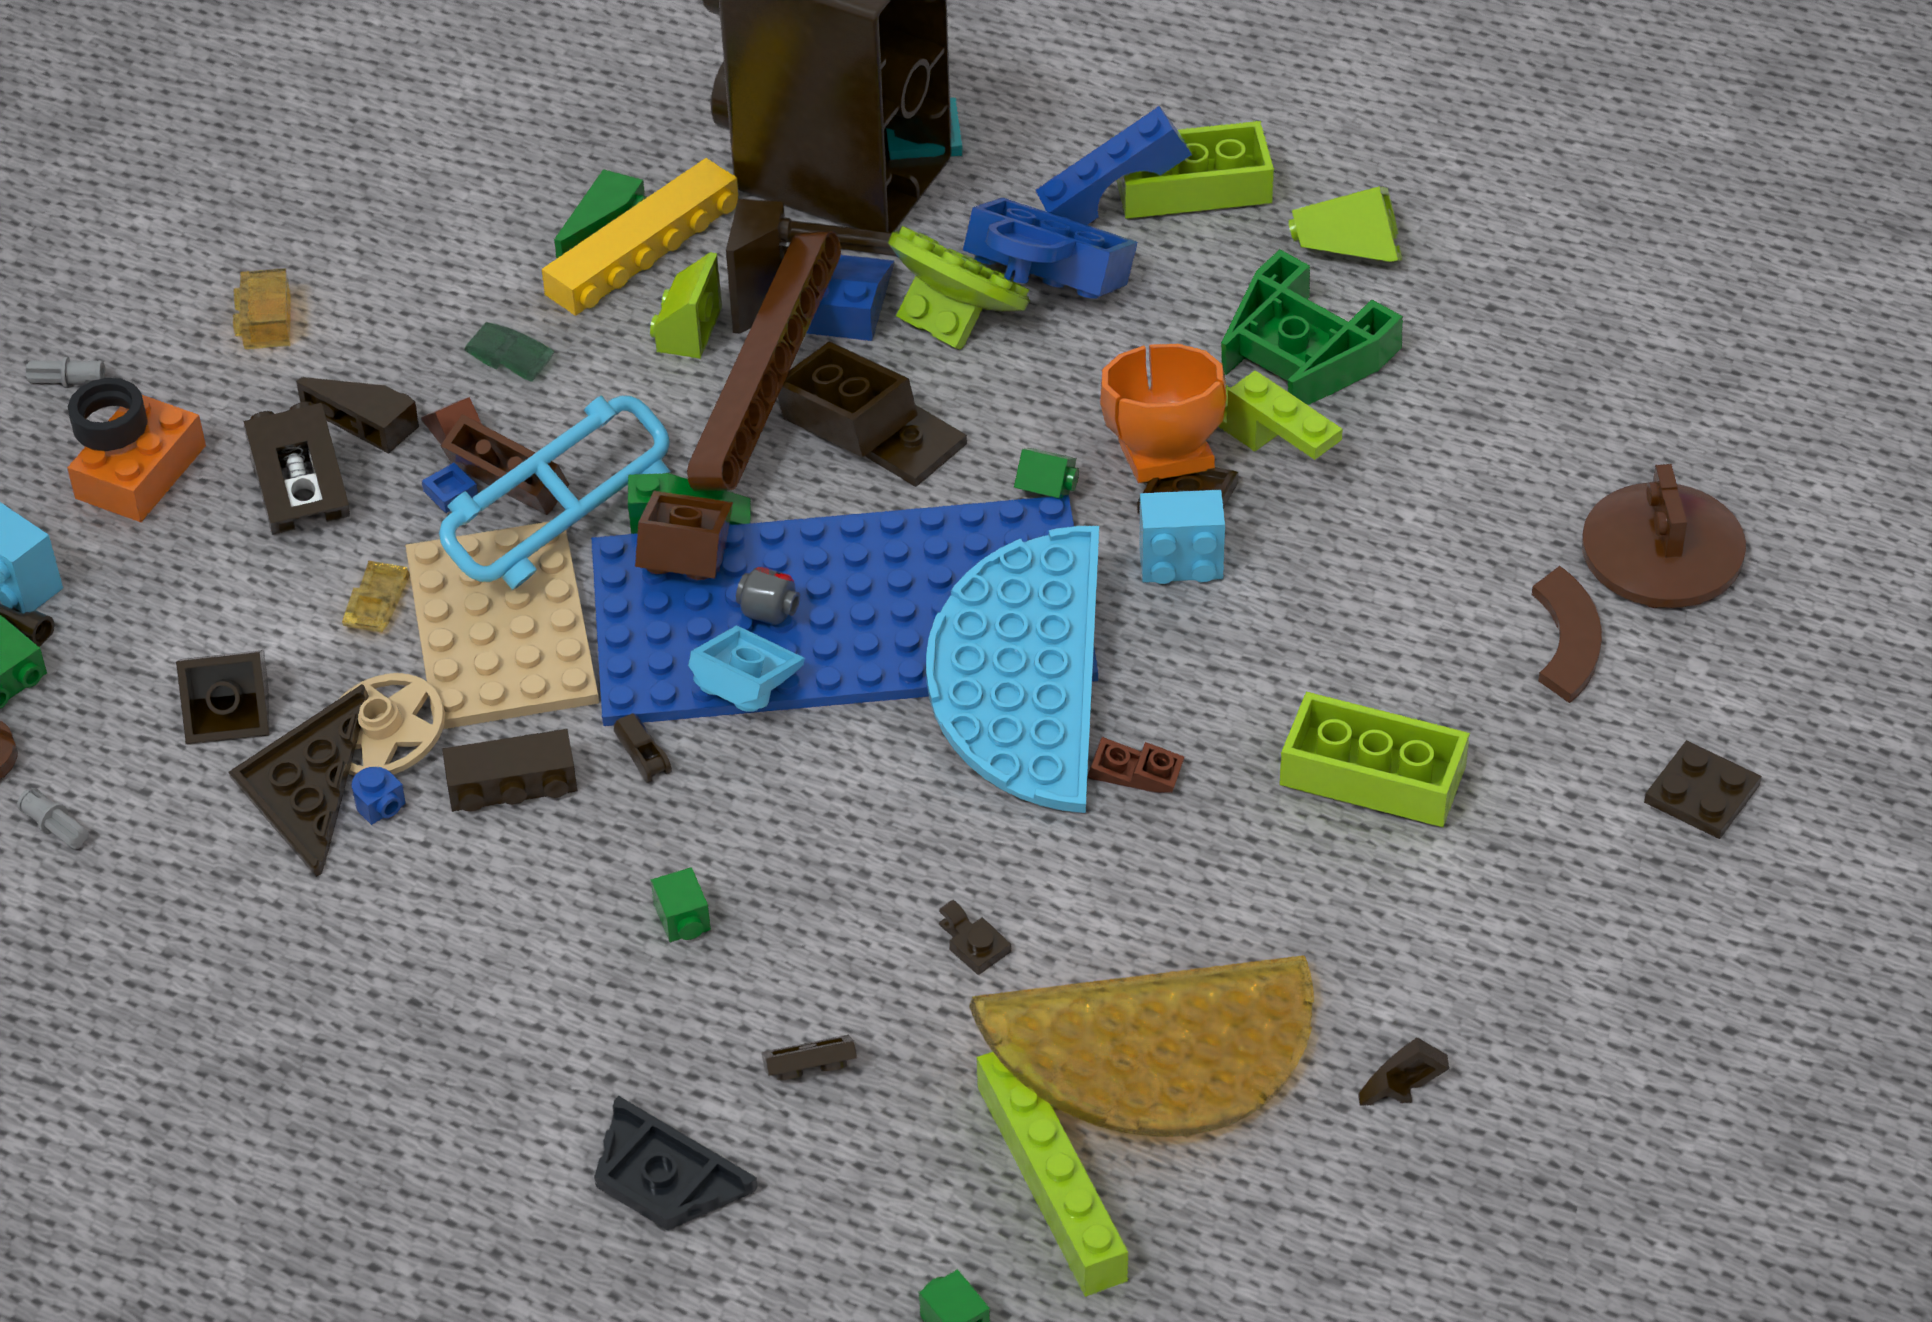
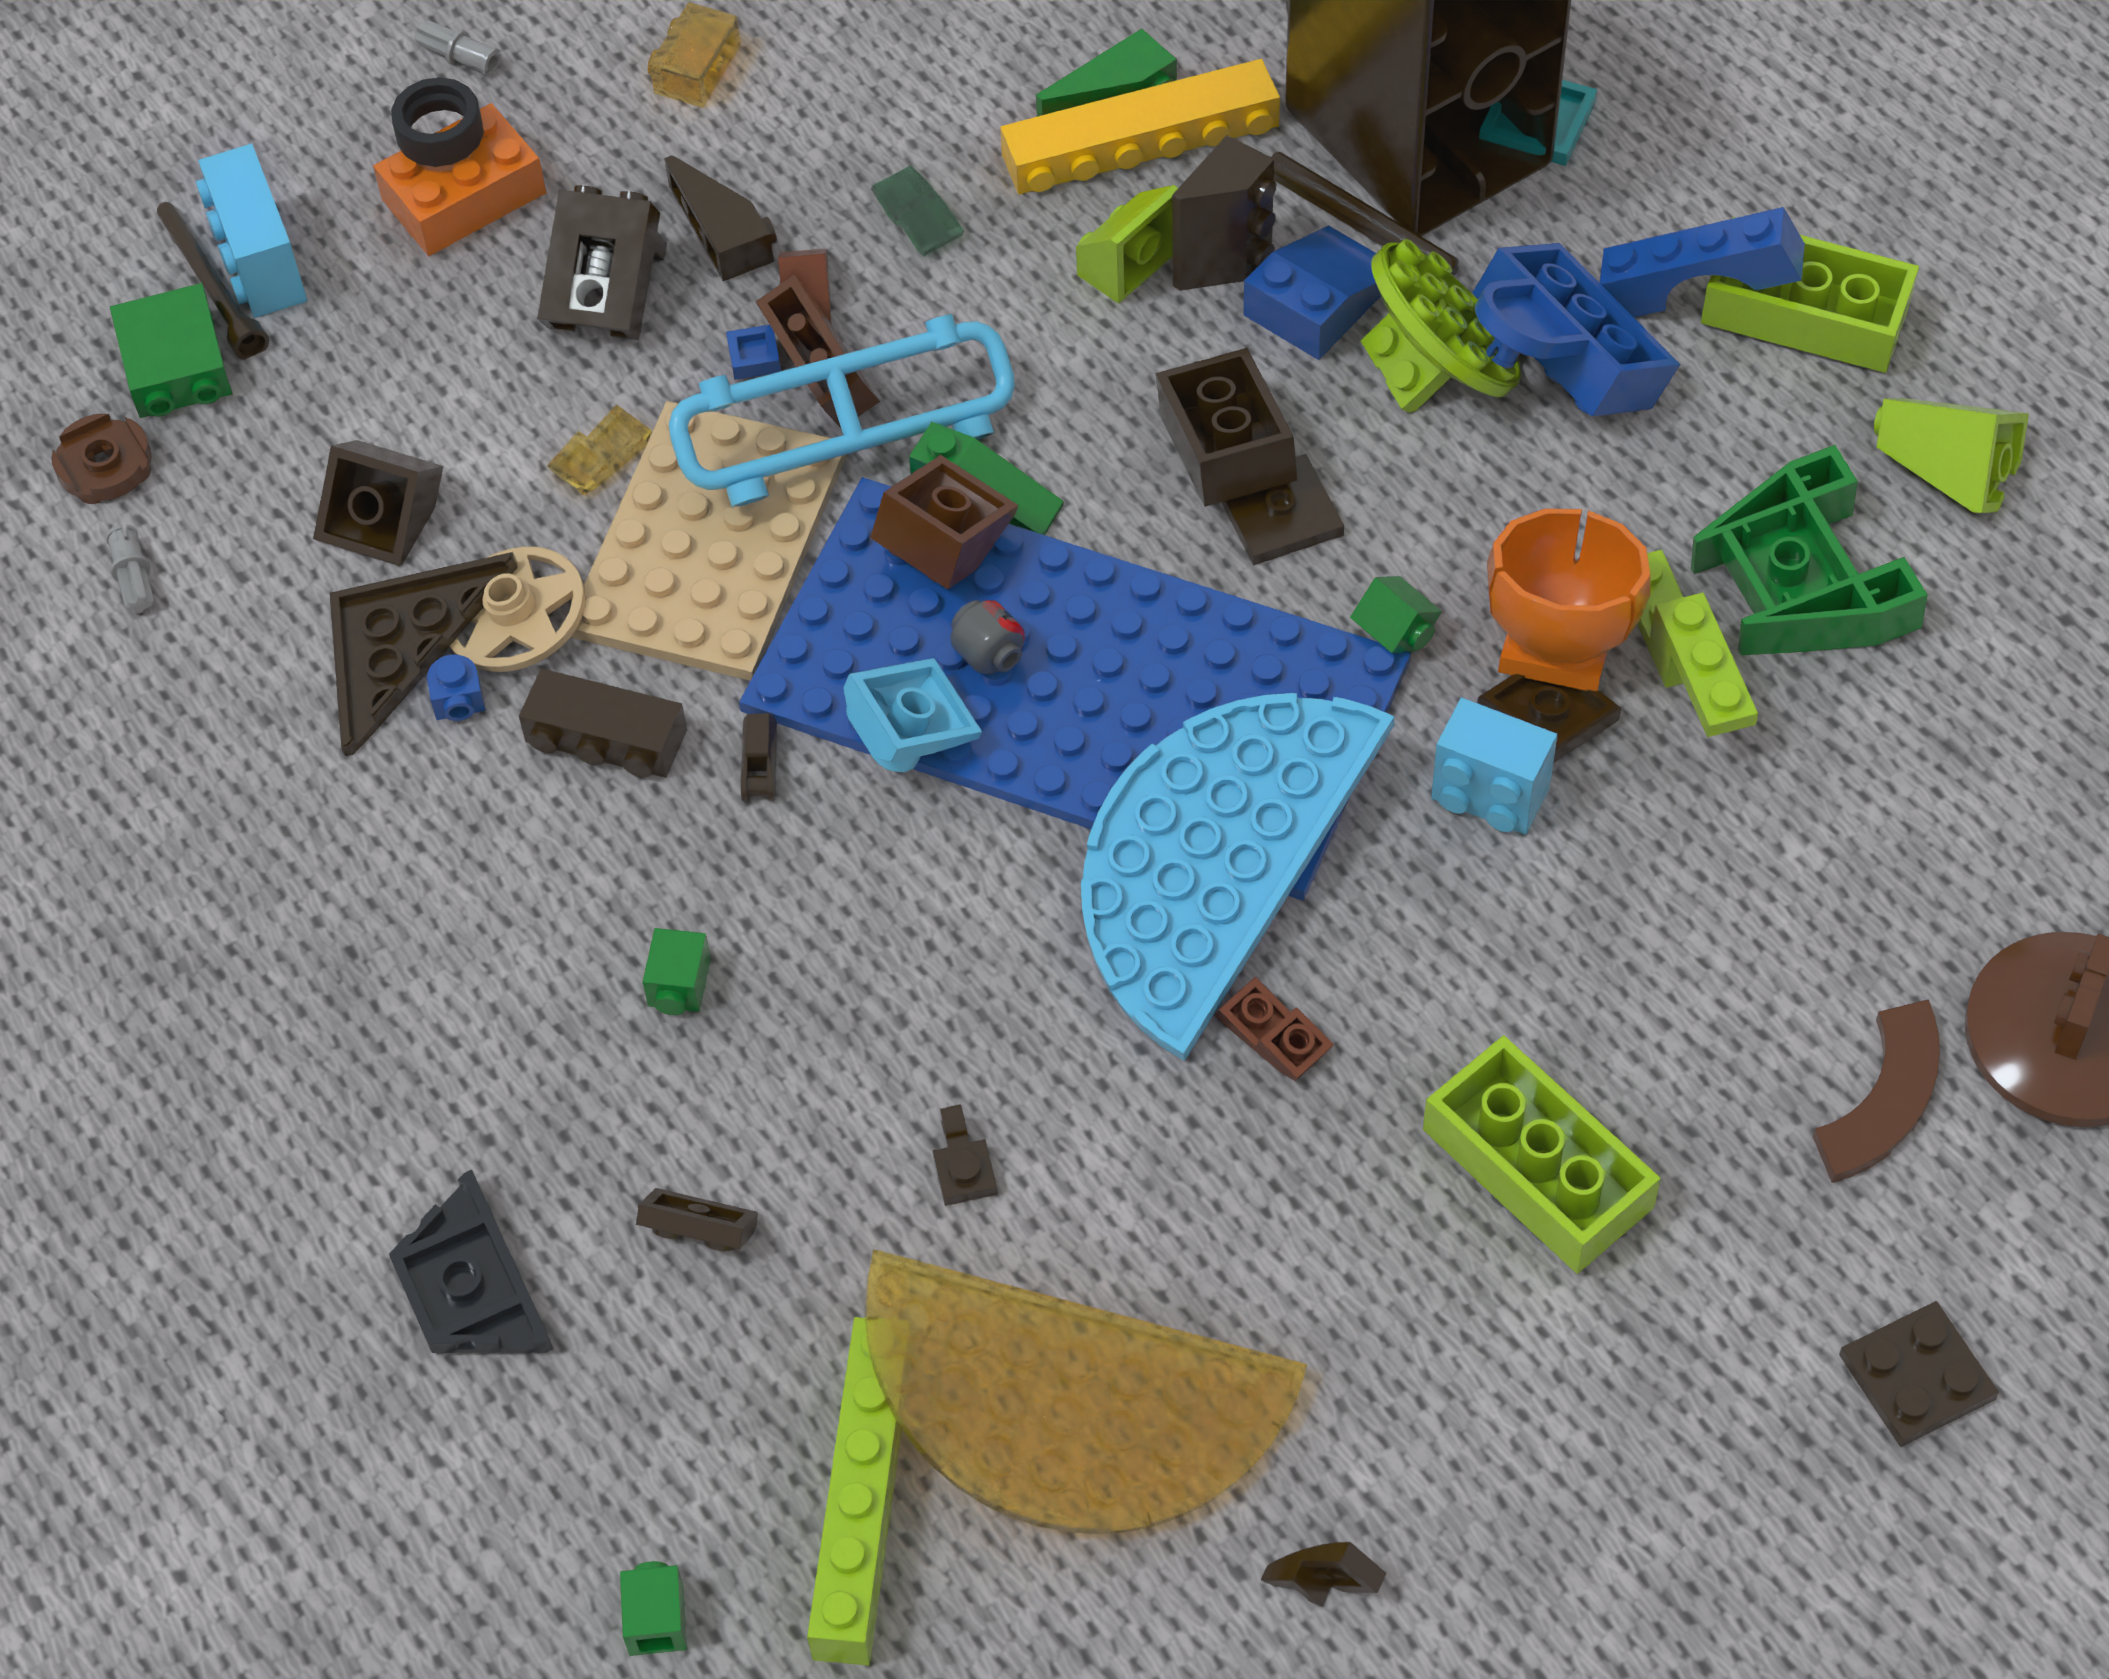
camera: 30 degrees right, 10 degrees up
(764, 362) = (1154, 345): reddish brown beam -> none

